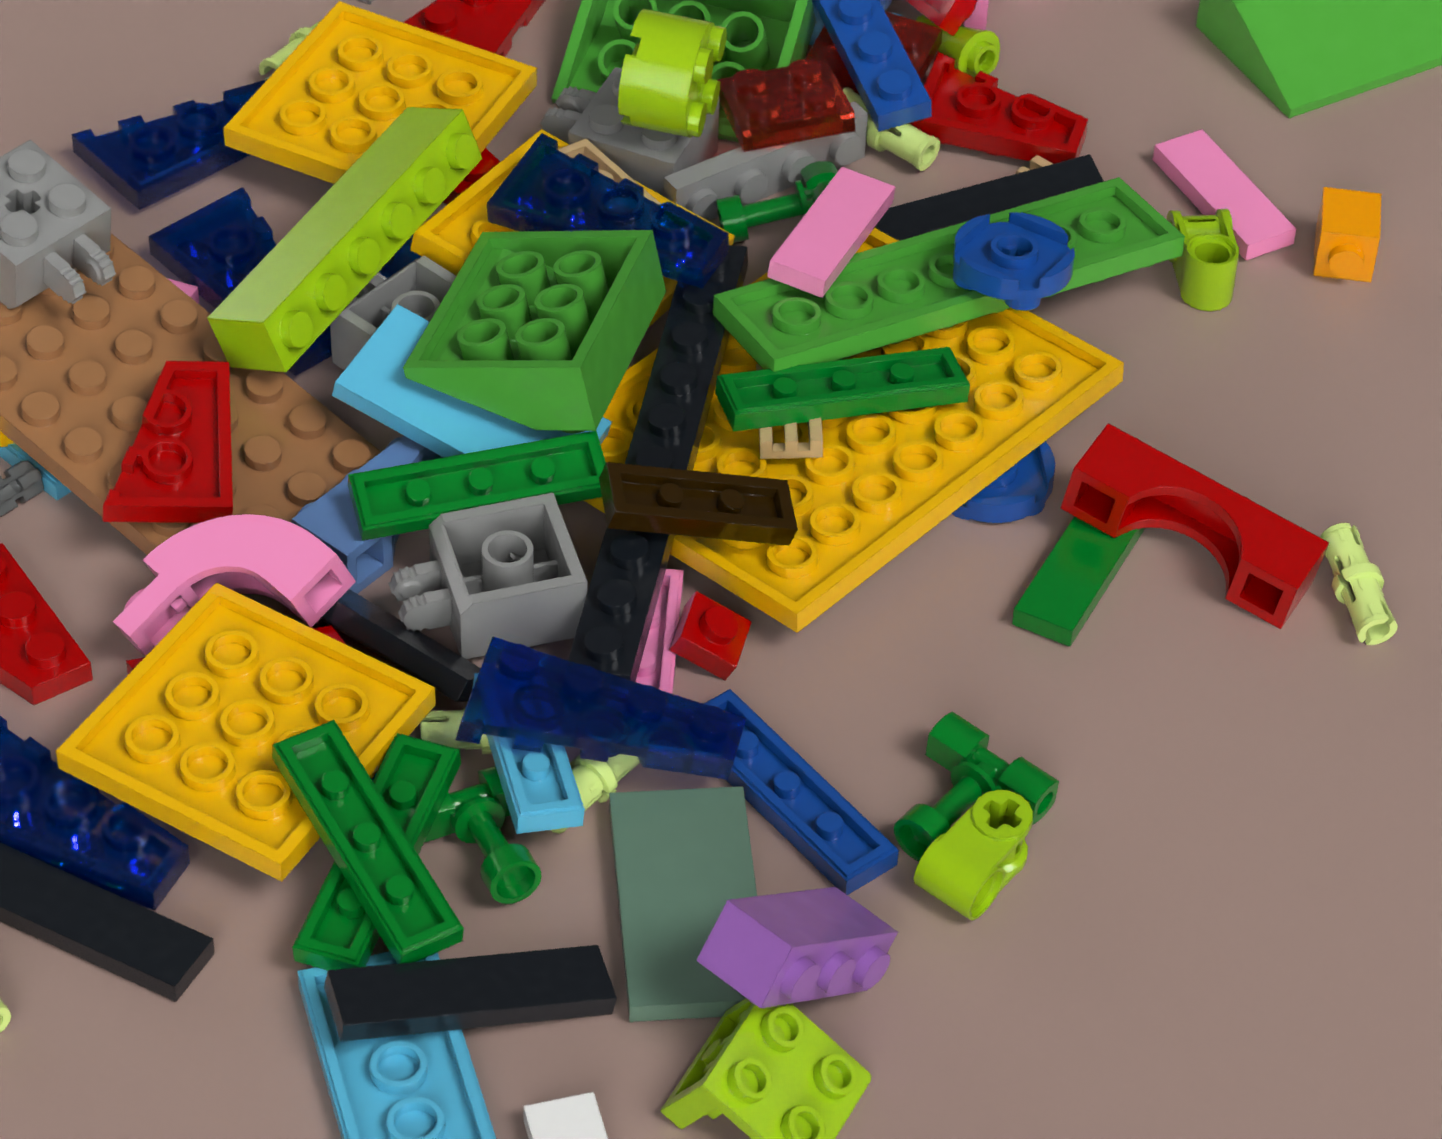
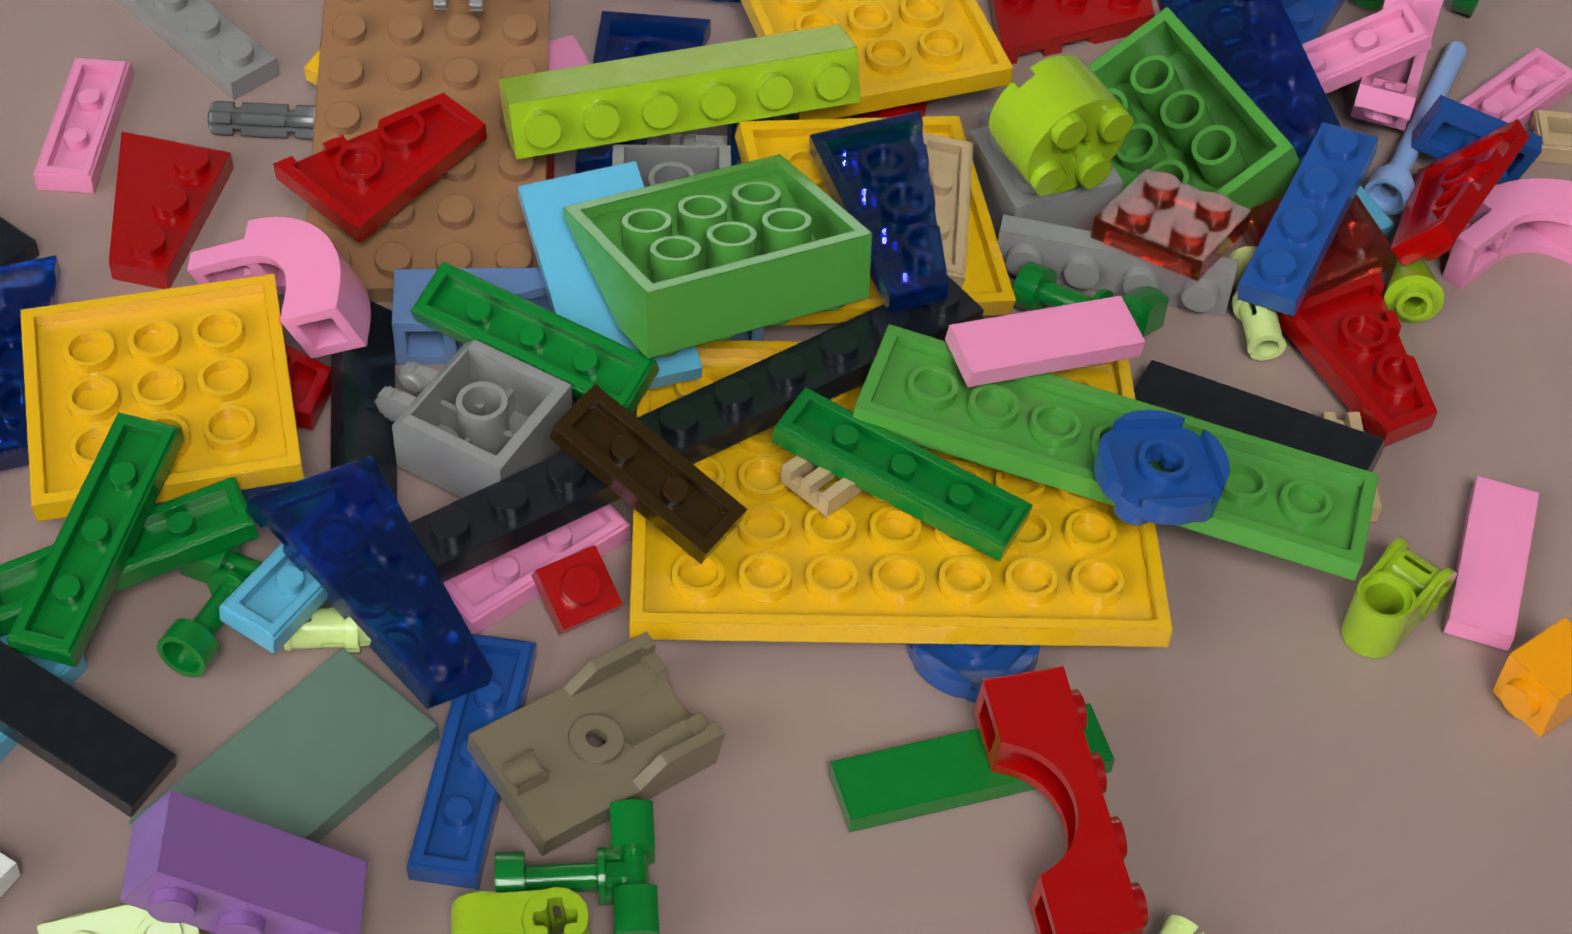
camera: 45 degrees right, 5 degrees up
(864, 715) = (564, 784): none -> dark tan piece

